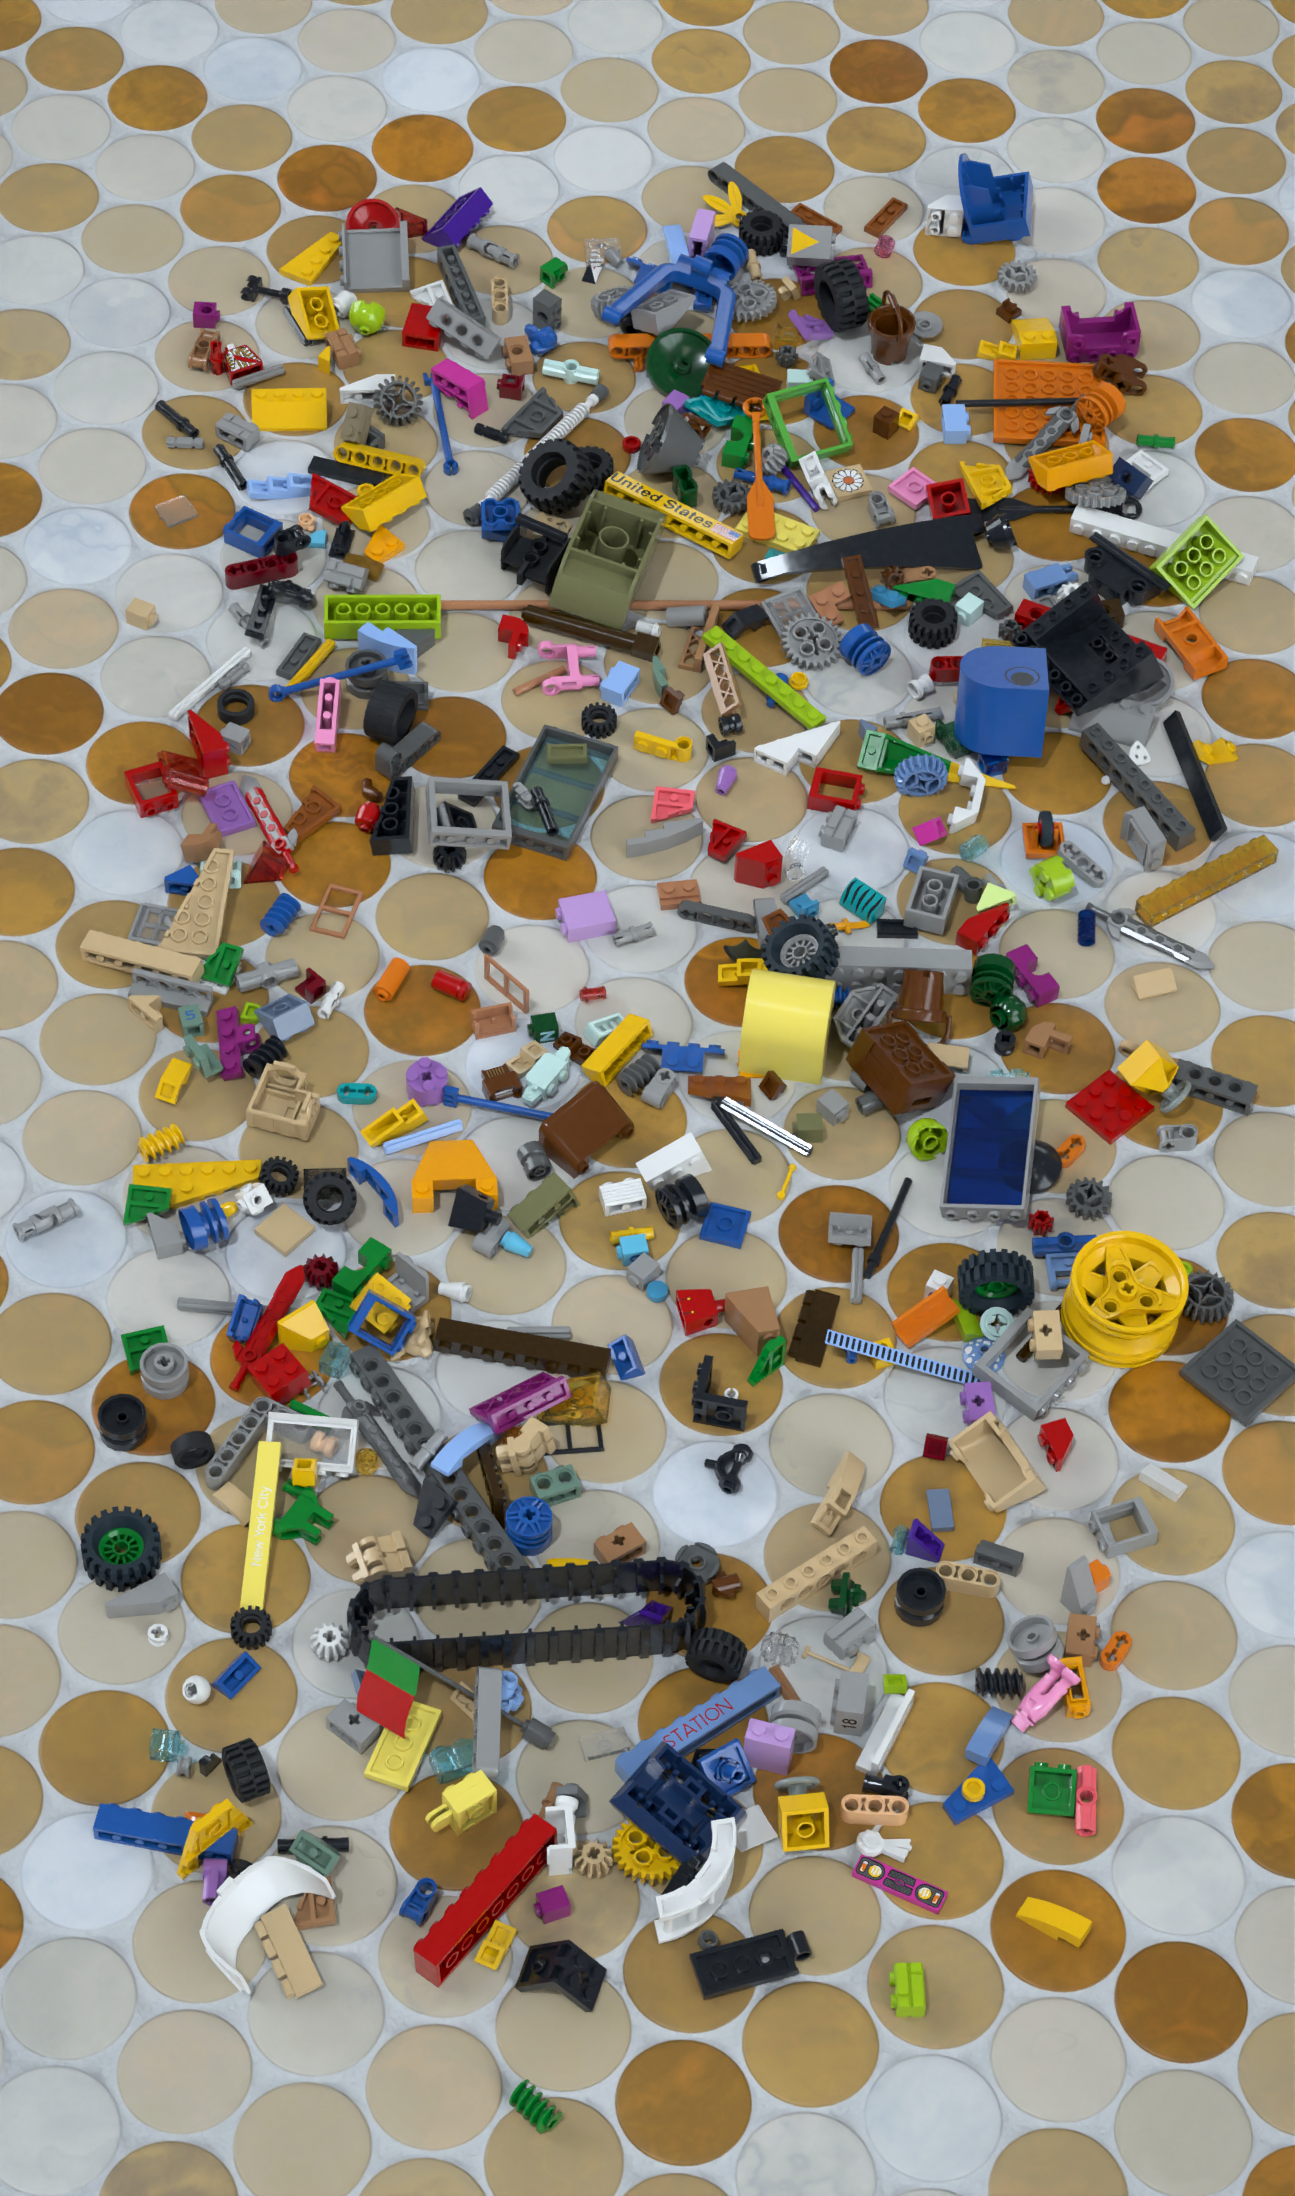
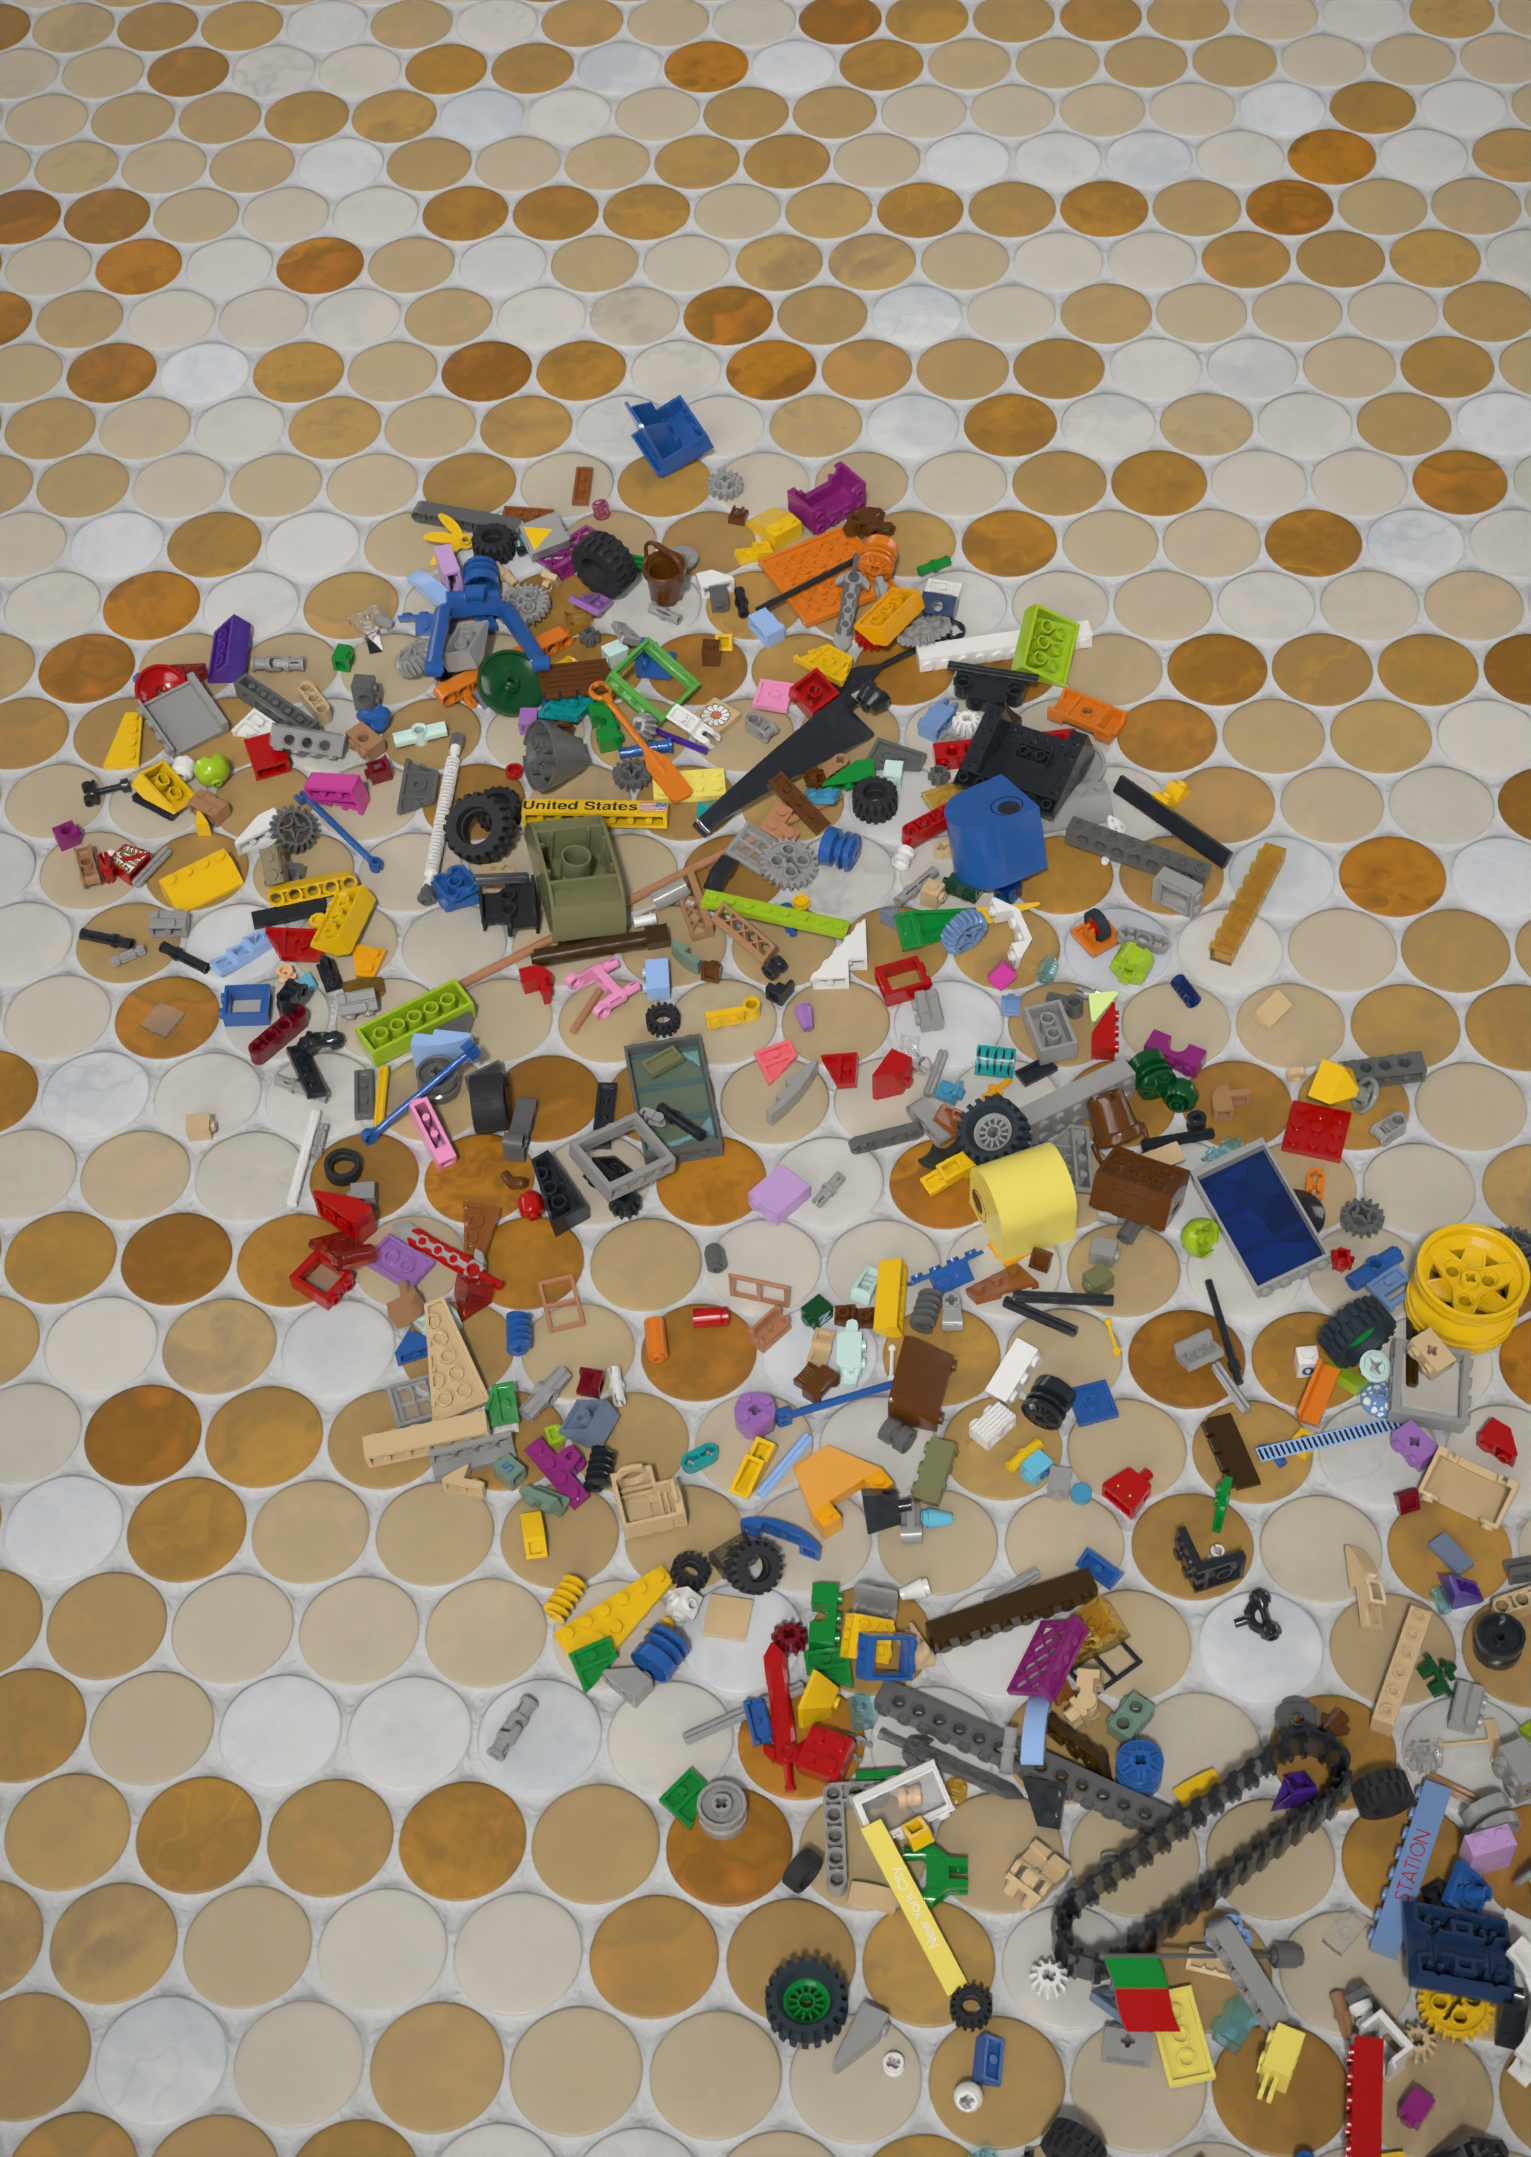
camera: 25 degrees left, 0 degrees up
(122, 1422) = (721, 1881): black wheel -> none
(491, 433) = (389, 818): black axle -> none
(592, 993) = (833, 1260): clear red pin -> none
(622, 1545) = (1224, 1754): medium nougat brick -> none
(673, 892) = (836, 1135): nougat plate -> none
(684, 485) = (588, 784): dark green brick -> none
(752, 1317) = (1185, 1474): medium nougat slope -> none
(945, 217) = (636, 462): white slope -> none
(975, 1047) = (1181, 1138): none -> black axle
(1120, 921) = (1209, 973): sword -> none

